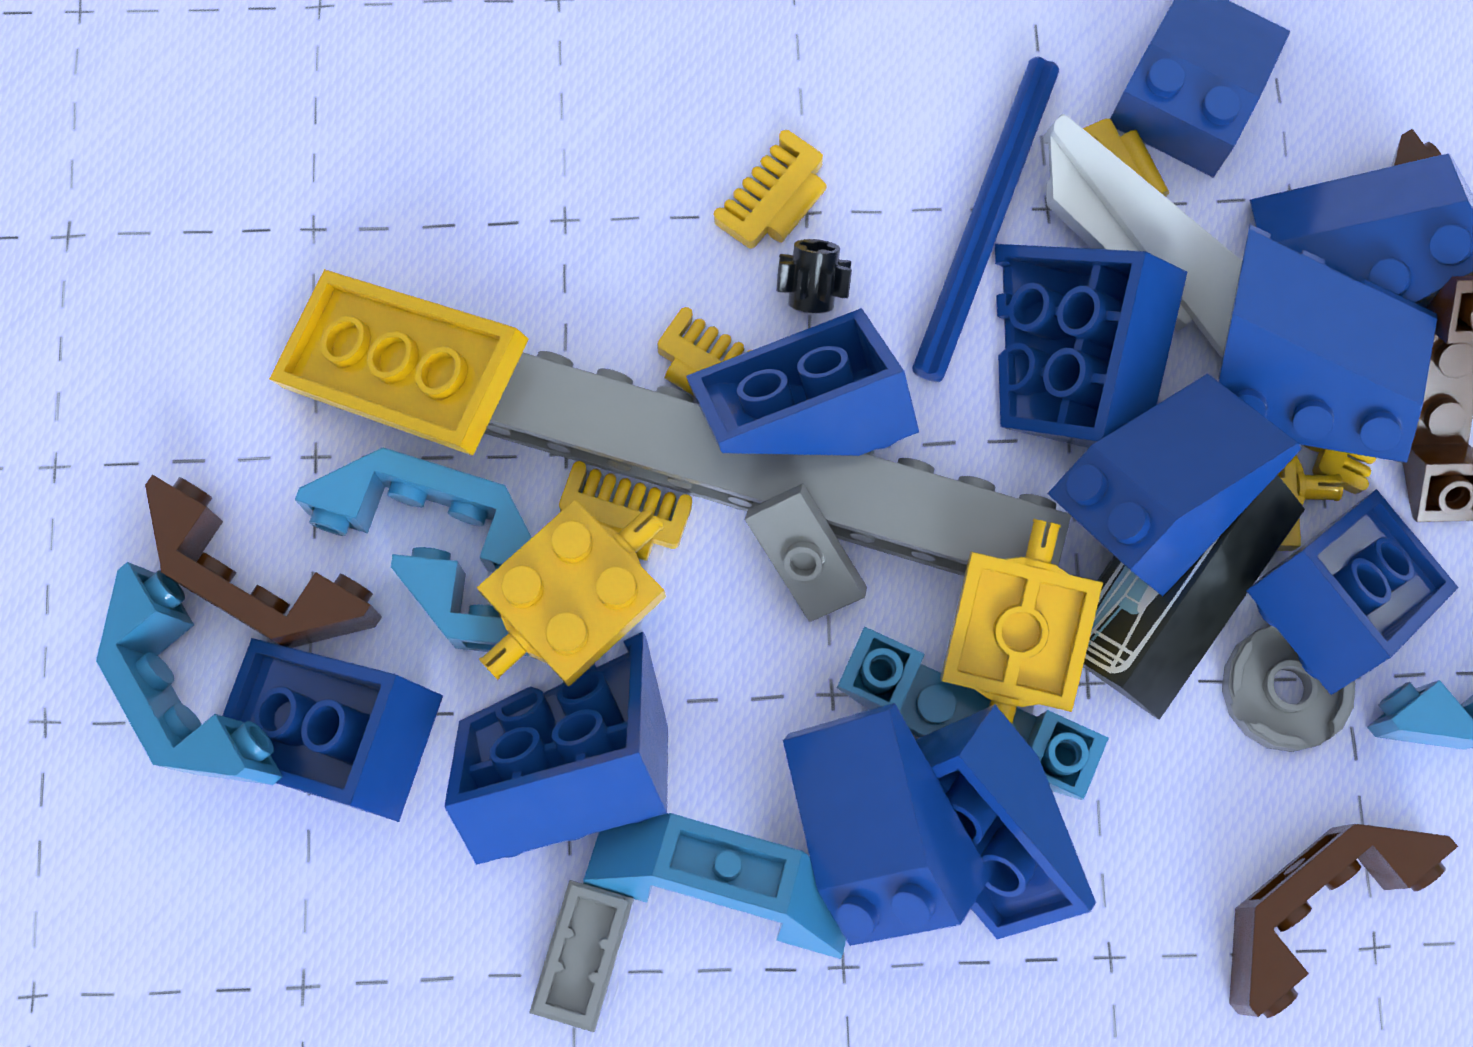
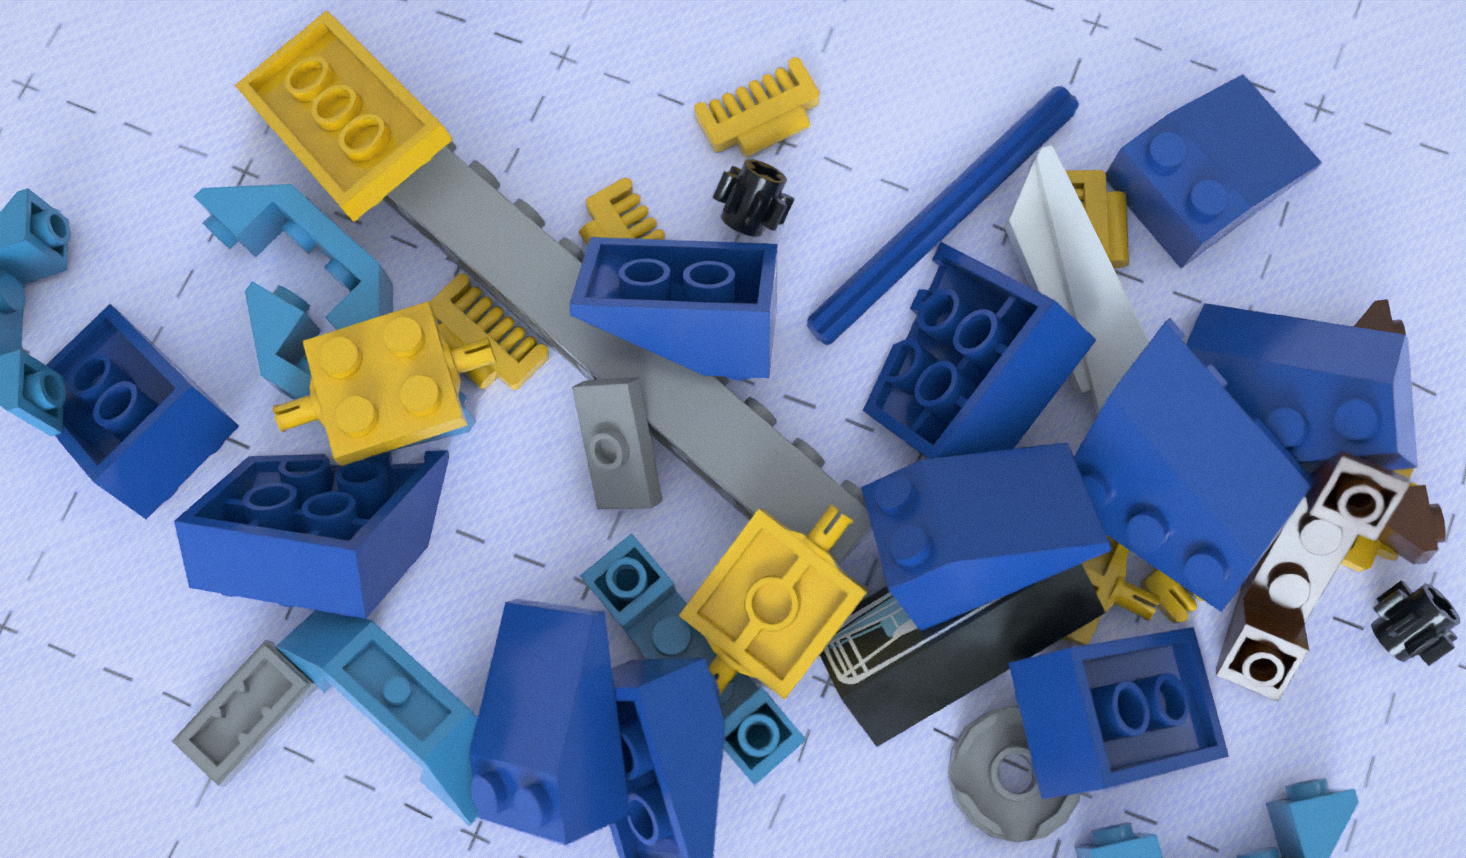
camera: 30 degrees right, 0 degrees up
(183, 531) = (89, 188): reddish brown slope -> none

